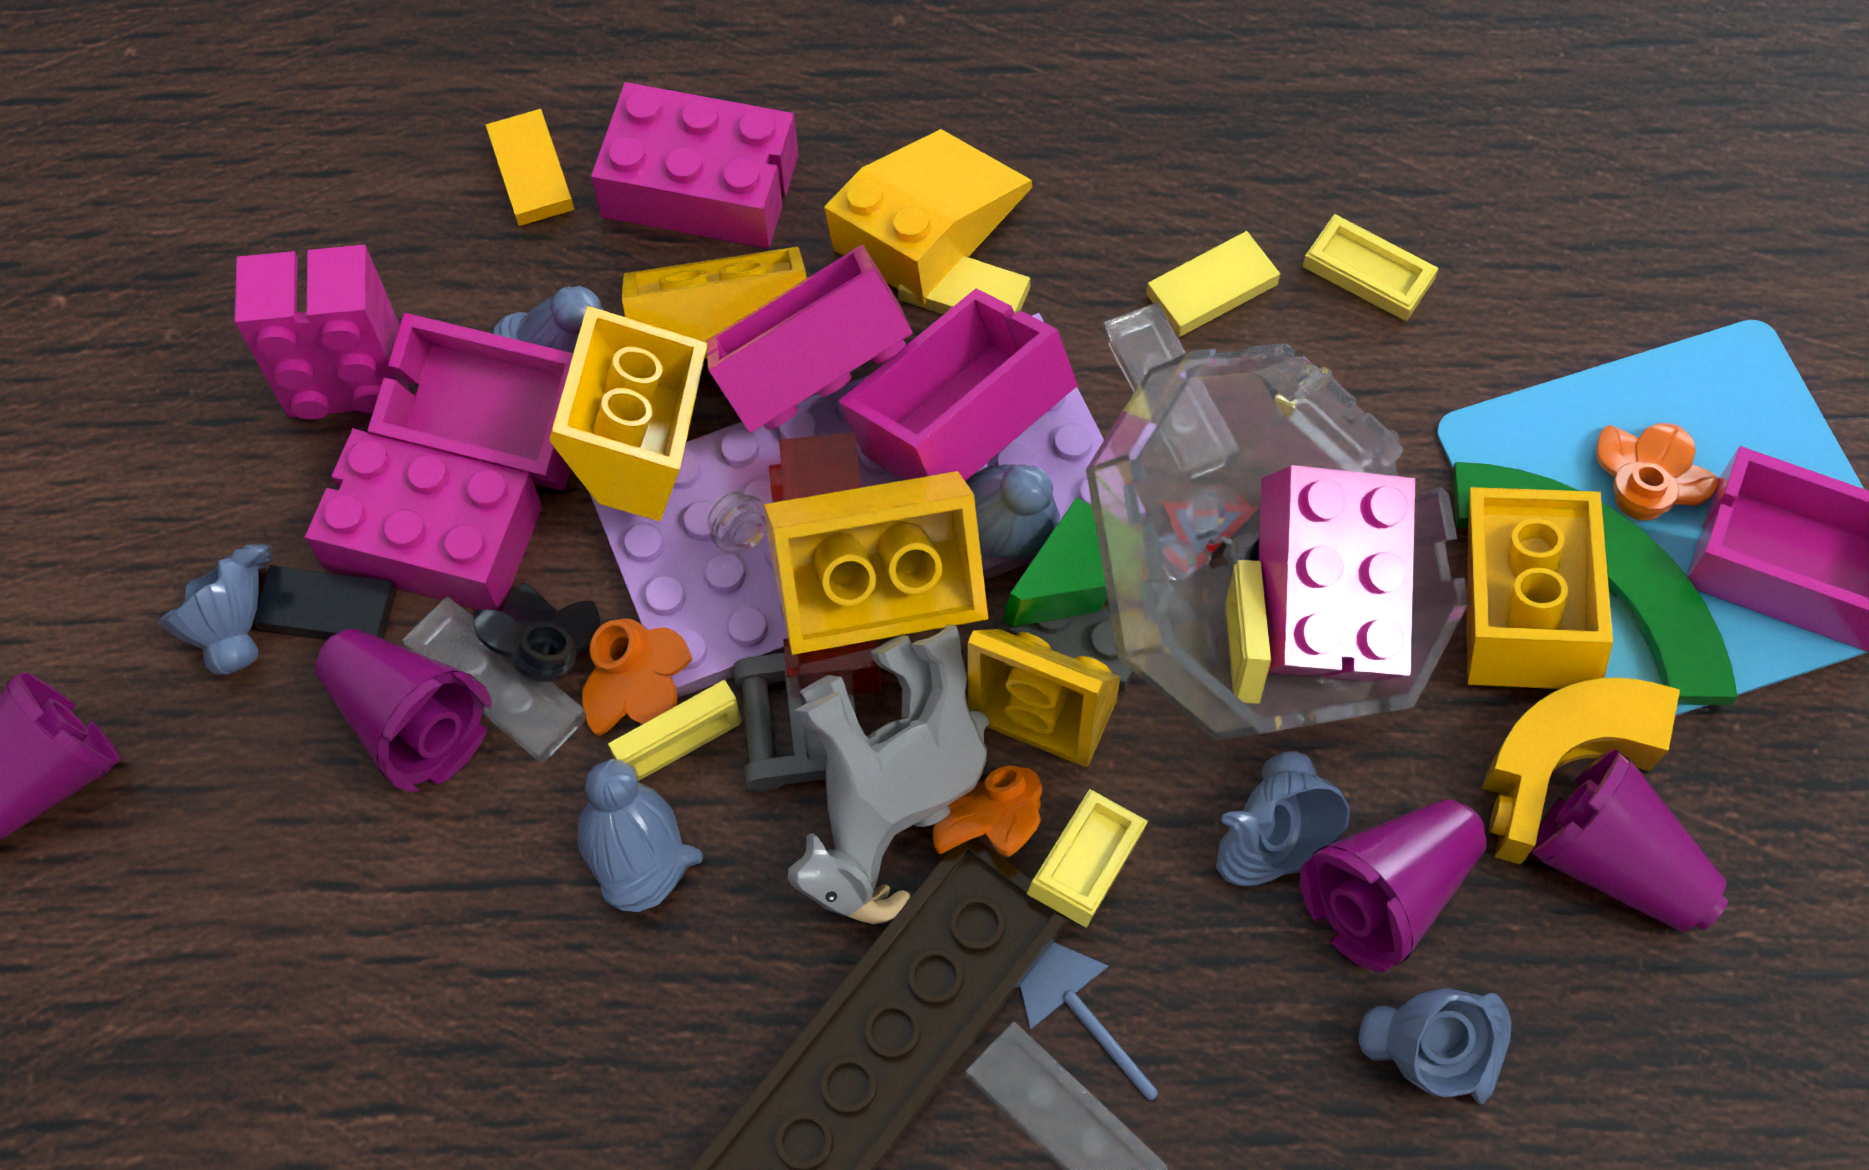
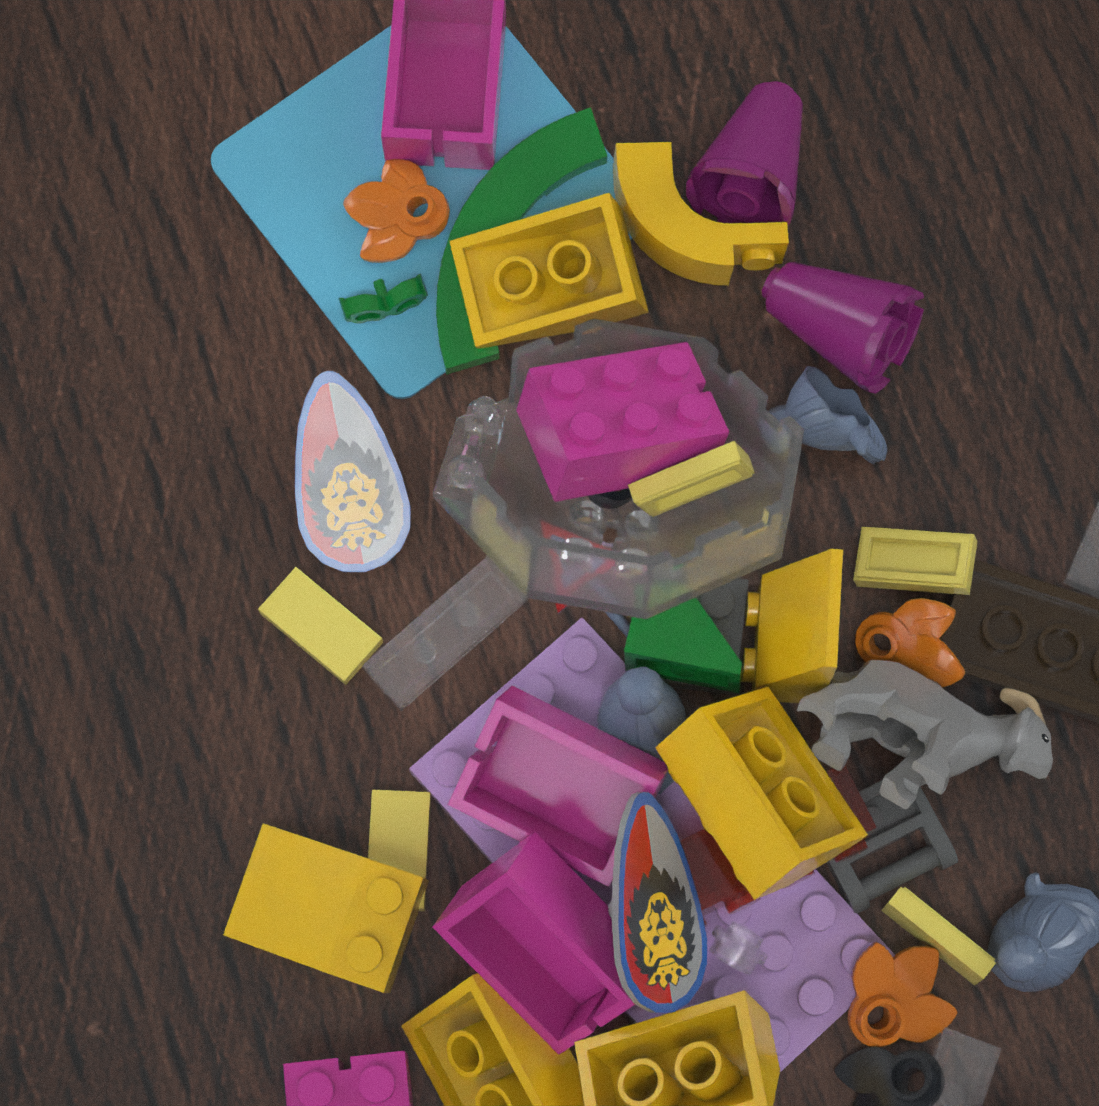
camera: 110 degrees left, 10 degrees up
(791, 416) = (655, 911): none -> shield
(1055, 982) = (1017, 557): sand blue piece -> none
(1367, 329) = (347, 480): none -> shield
(1370, 267) = (255, 494): light yellow tile -> none
(1442, 1041) = (962, 260): sand blue hair -> none
(1549, 436) = (377, 307): none -> green piece

